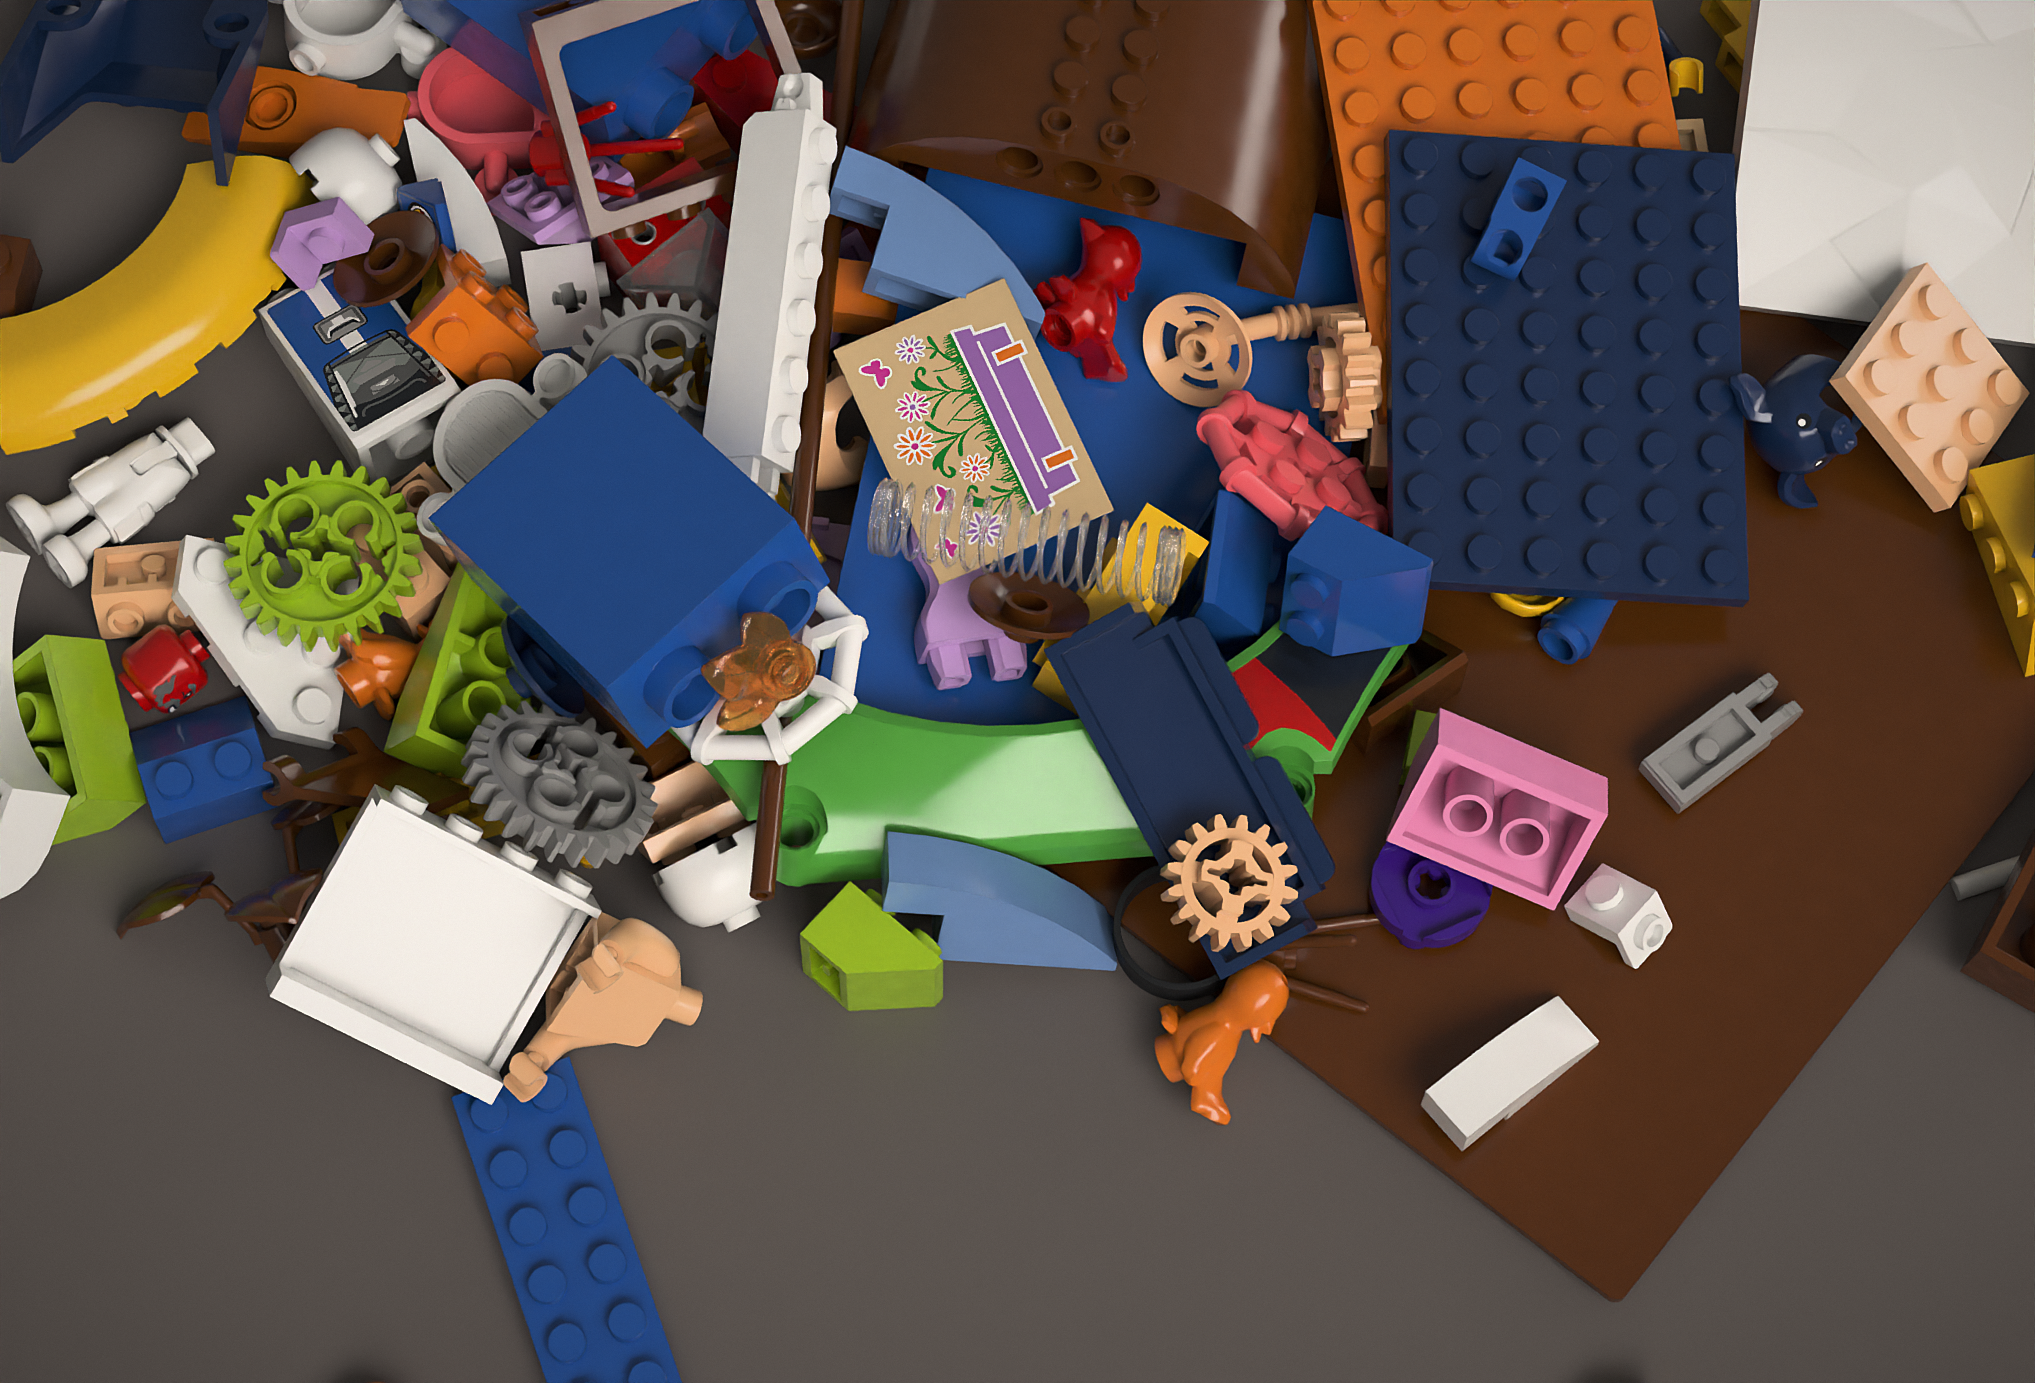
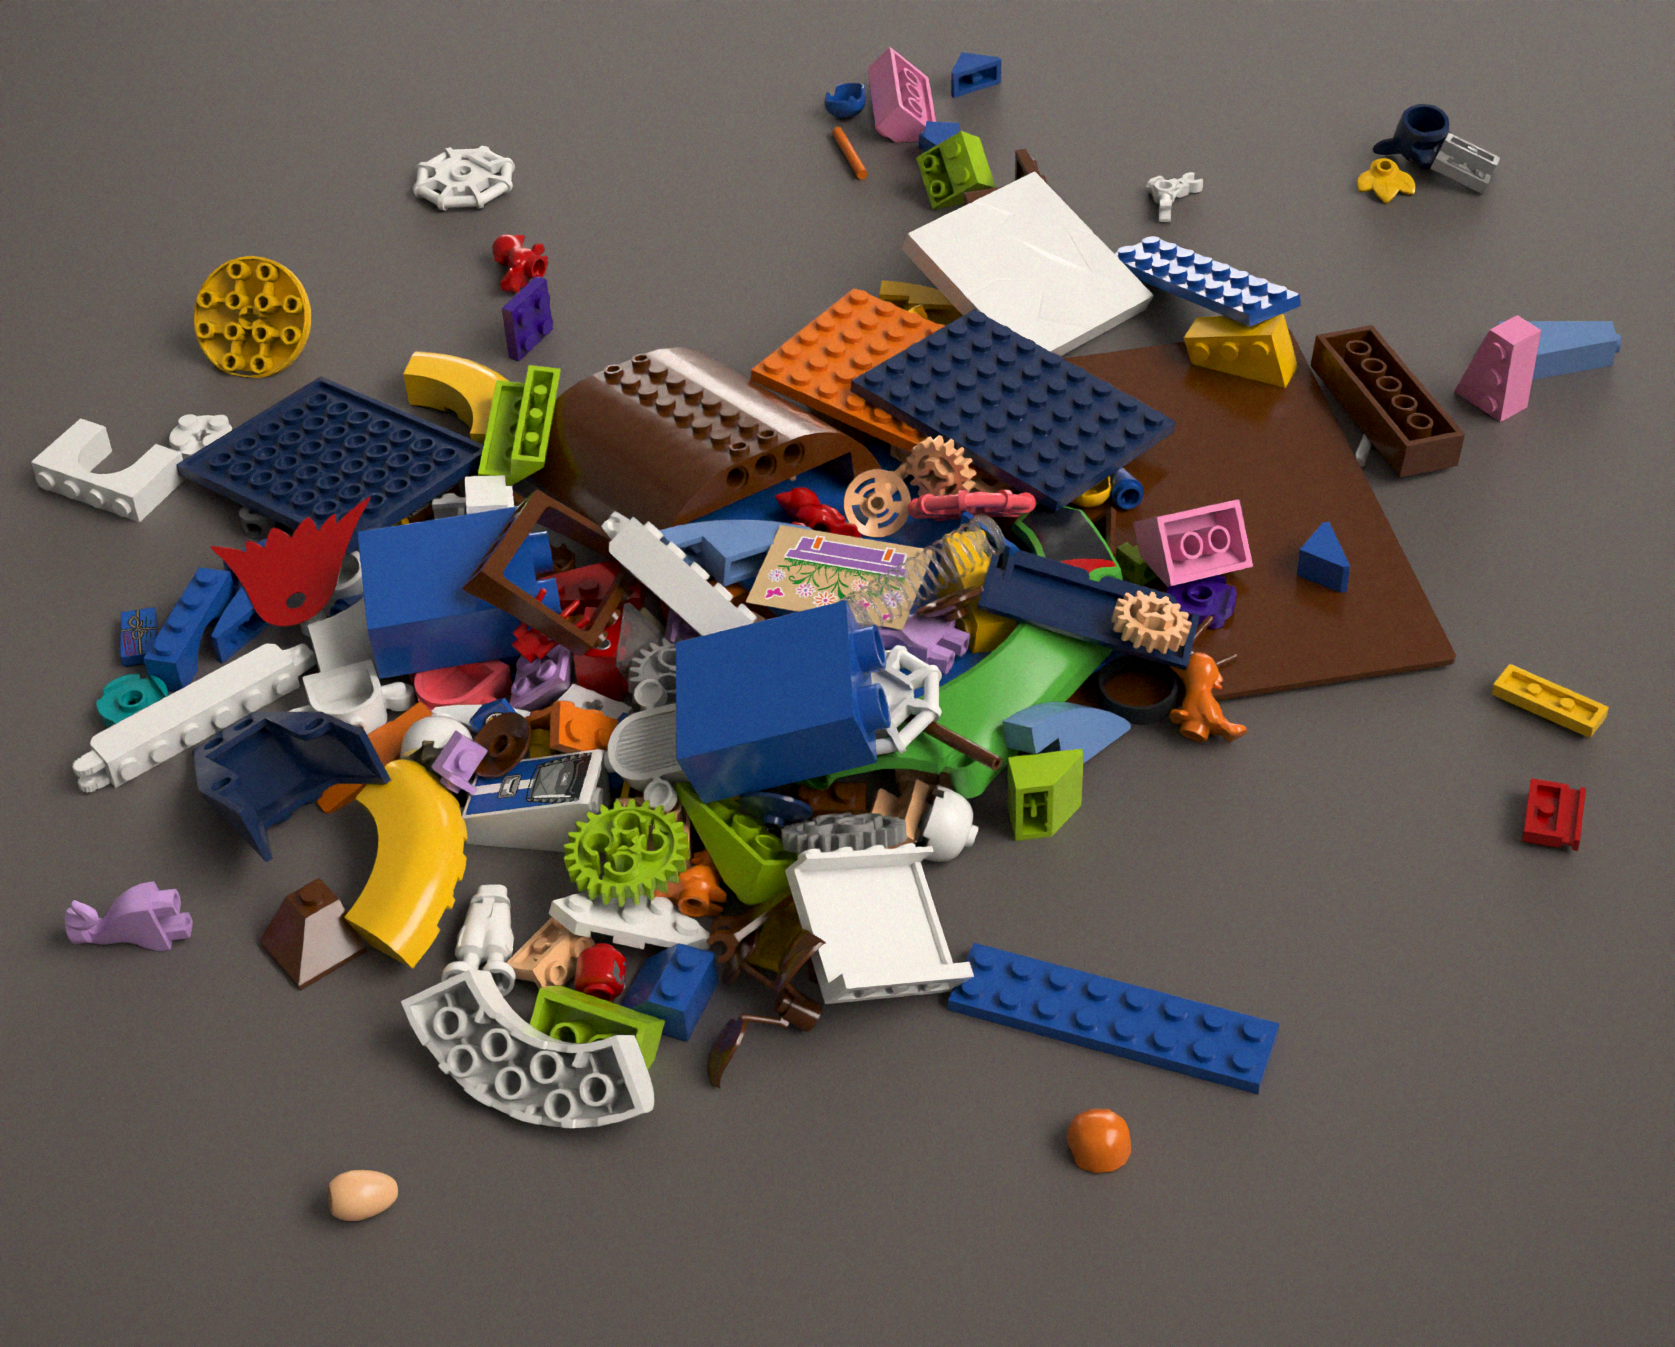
camera: 45 degrees left, 25 degrees down
(606, 991) = (964, 892): light nougat torso -> none
(753, 672) = (898, 676): clear orange plate -> none
(1353, 588) = (1054, 500): blue slope -> none
(1508, 1072) = (1317, 625): white slope -> none
(1517, 219) = (942, 364): blue leg -> none
(1622, 913) = (1274, 547): white bracket -> none
(1651, 990) = (1324, 560): none -> blue slope
(1716, 745) = (1225, 477): light grey hinge -> none
(1793, 425) = (1111, 362): dark blue piece -> none
(1929, 387) = (1133, 327): light nougat plate -> none

